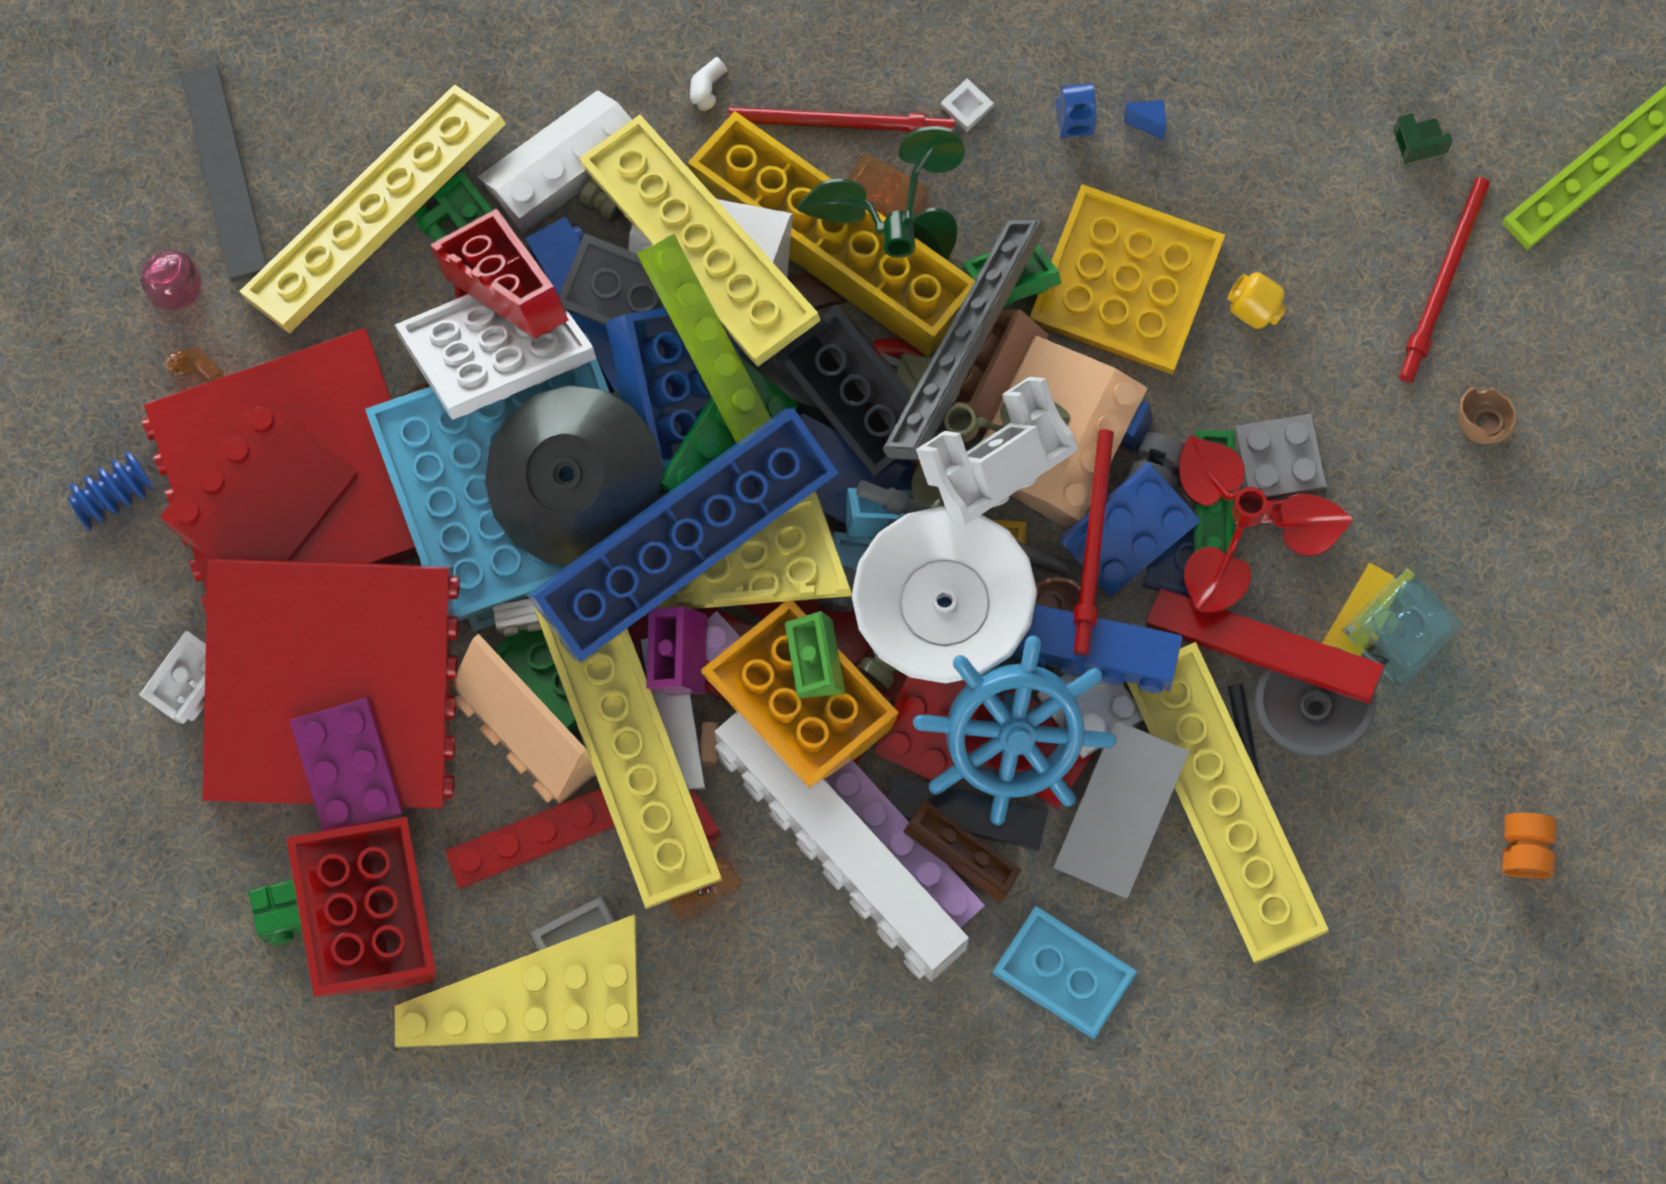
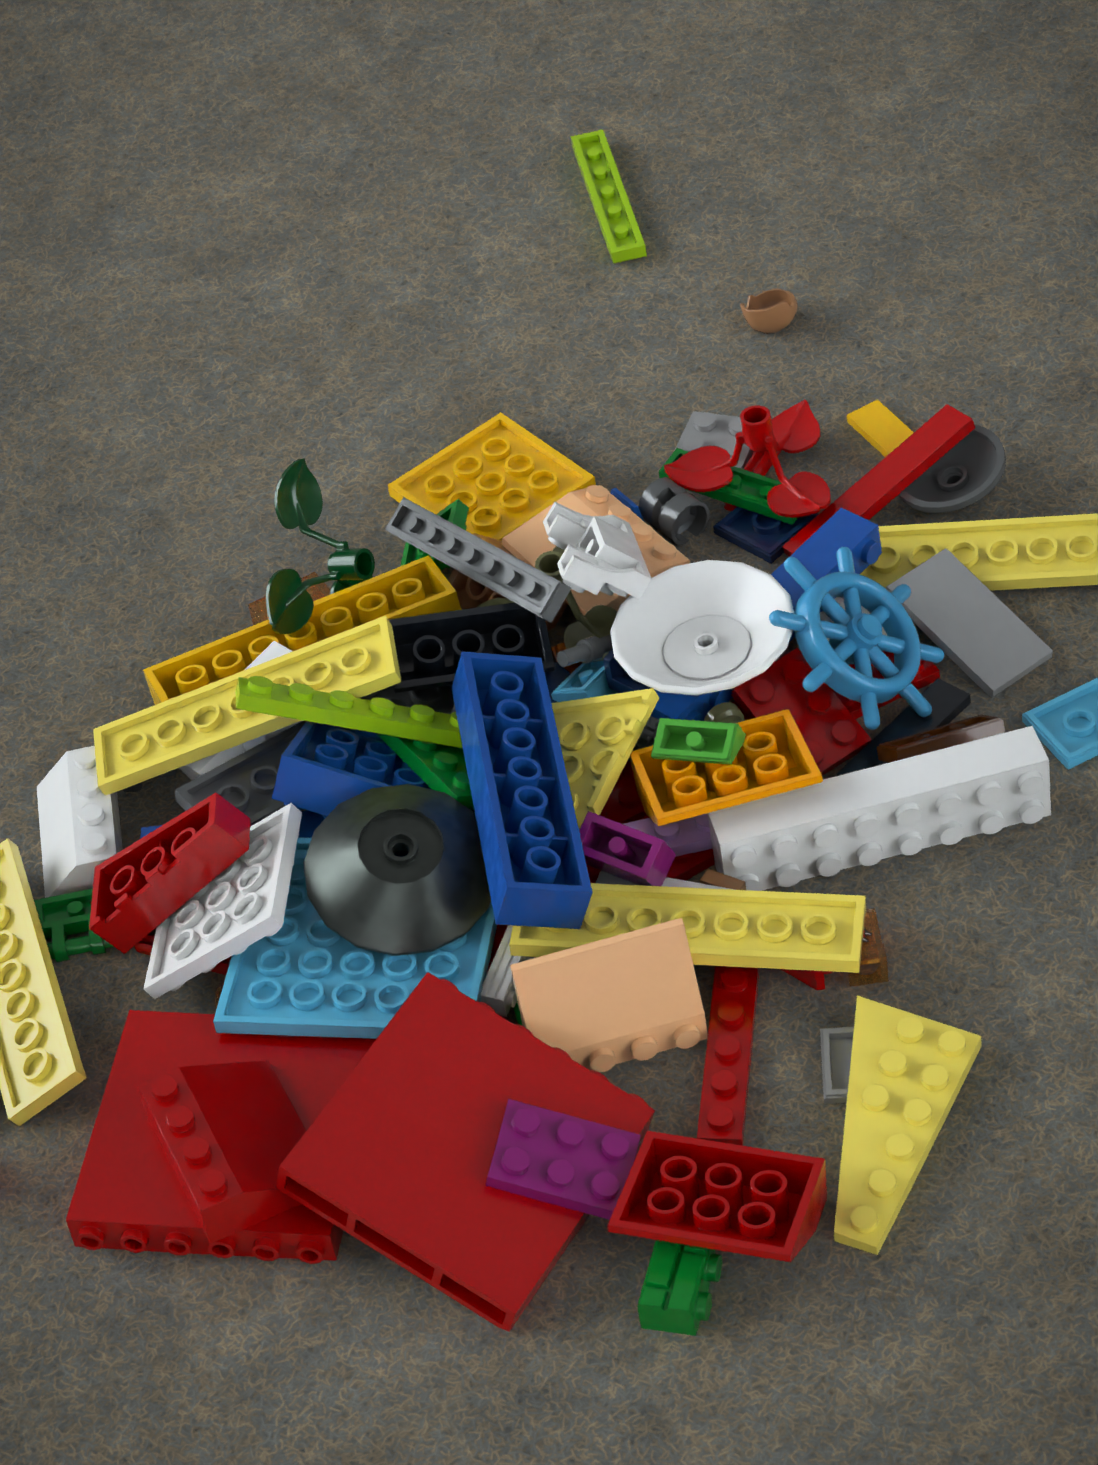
camera: 55 degrees left, 30 degrees down
(109, 490) = (128, 1294): blue piece -> none
(179, 681) = (375, 1299): white bracket -> none
(192, 361) = (48, 1186): clear orange arm -> none
(594, 197) = (142, 805): olive wheel -> none
(702, 84) = (96, 709): white arm -> none
(841, 120) = (245, 580): red bar -> none
(967, 105) = (257, 543): white tile -> none
(1076, 108) = (324, 459): blue leg -> none
(1086, 613) = (773, 555): red bar -> none
(1139, 526) = (715, 522): blue plate -> none
(1147, 116) = (363, 429): blue slope -> none
(1257, 300) = (571, 411): yellow head -> none
(1402, 626) = (911, 394): clear light blue brick -> none
(1420, 139) = (506, 285): dark green panel -> none
(1420, 342) = (677, 333): red bar -> none

